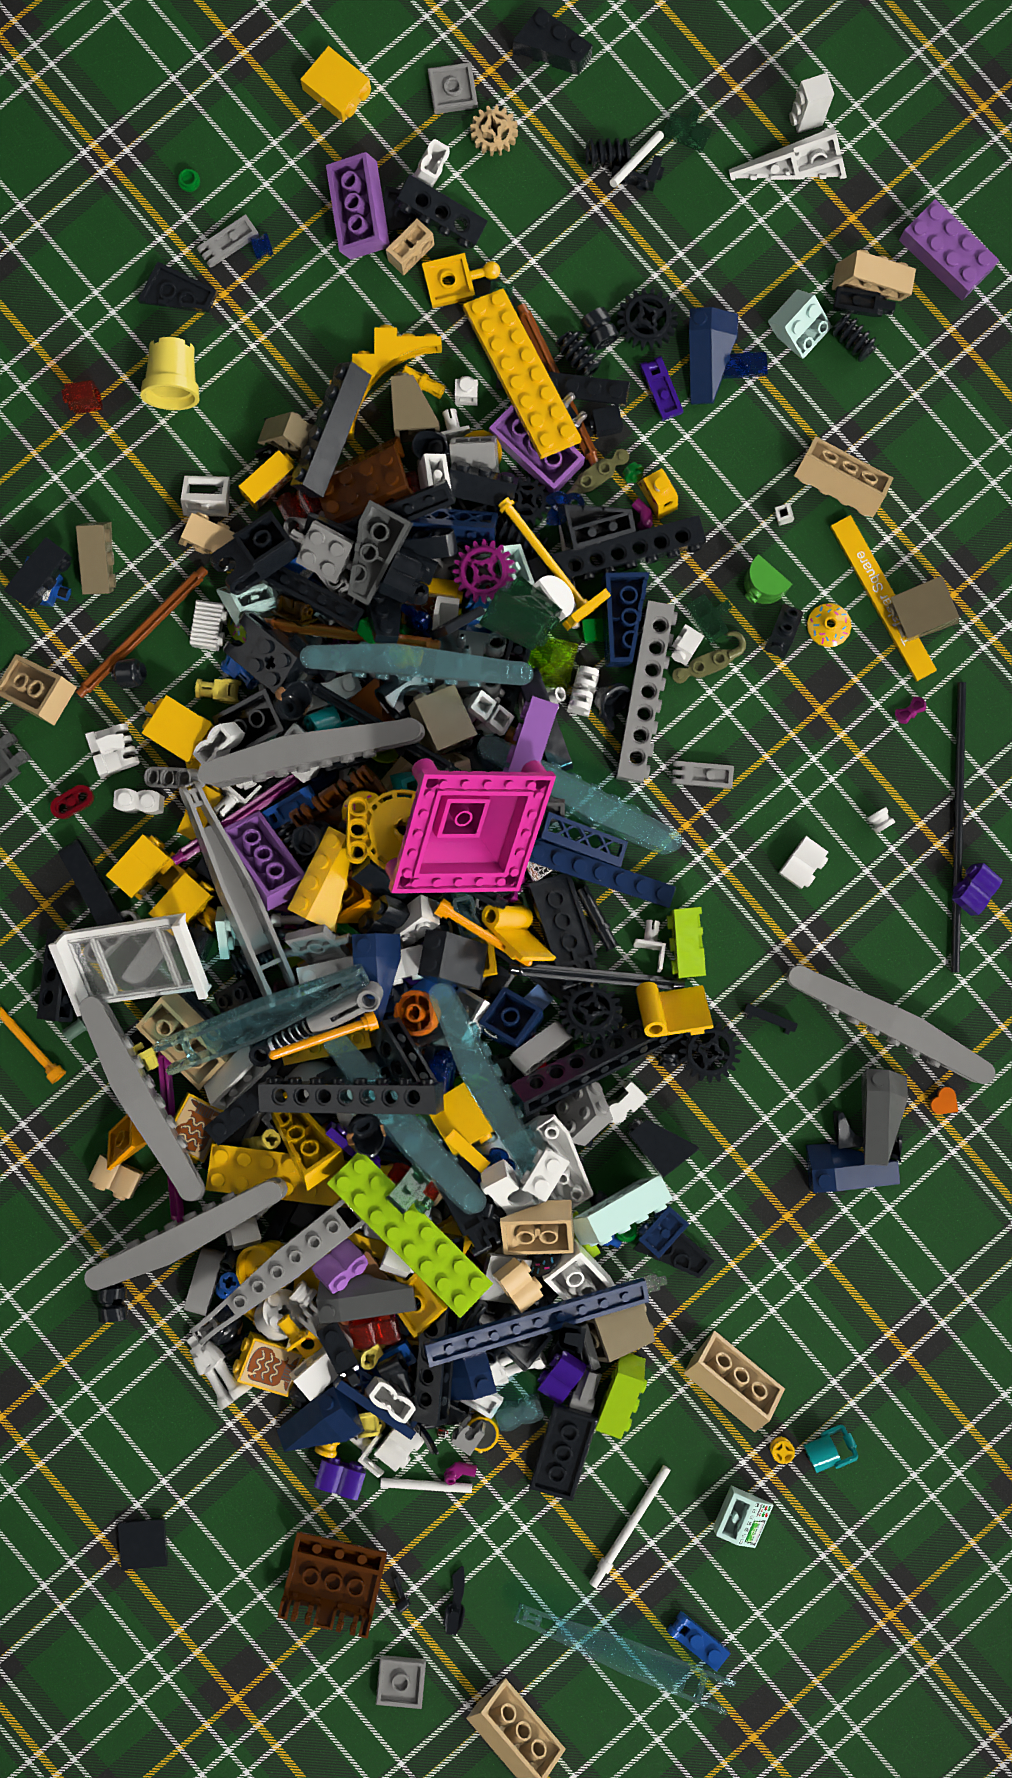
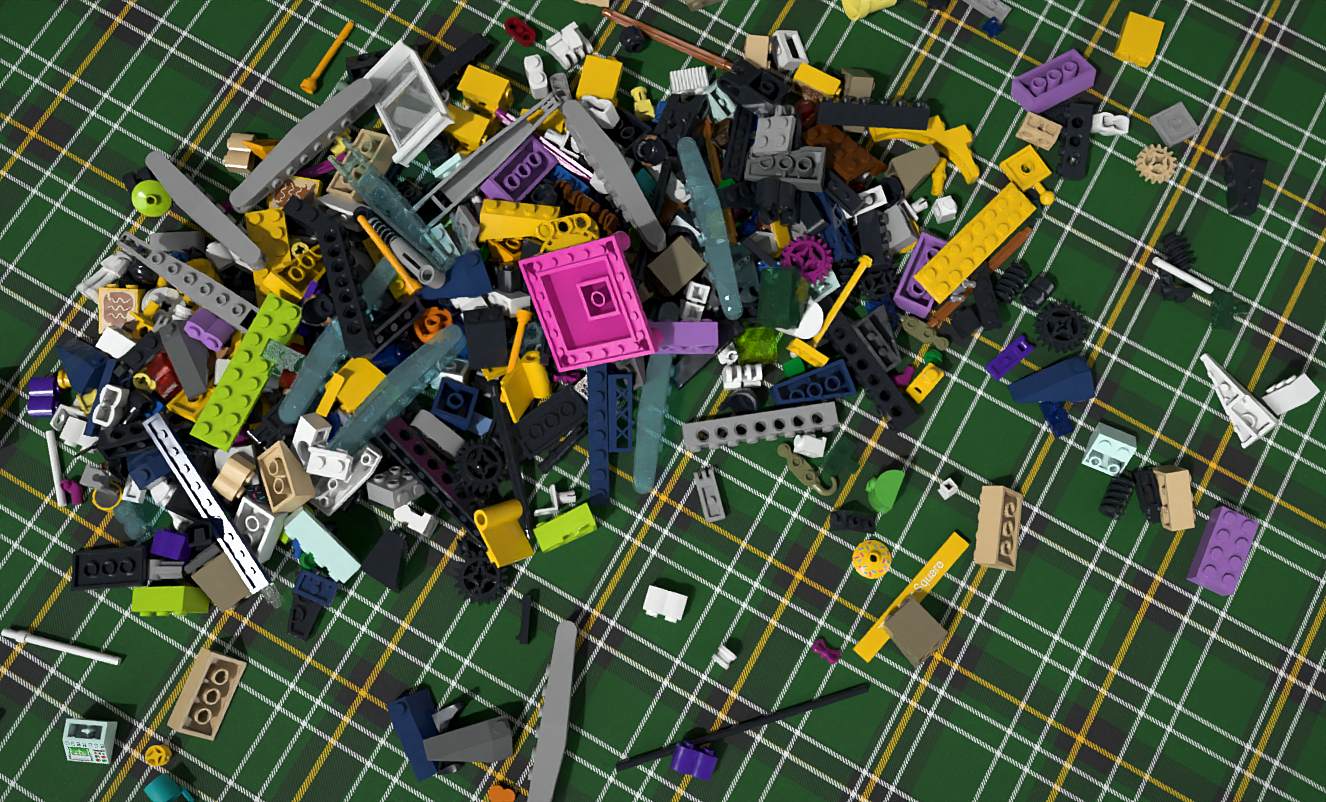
camera: 70 degrees right, 10 degrees down
(129, 1296) = (153, 189): none -> lime dish

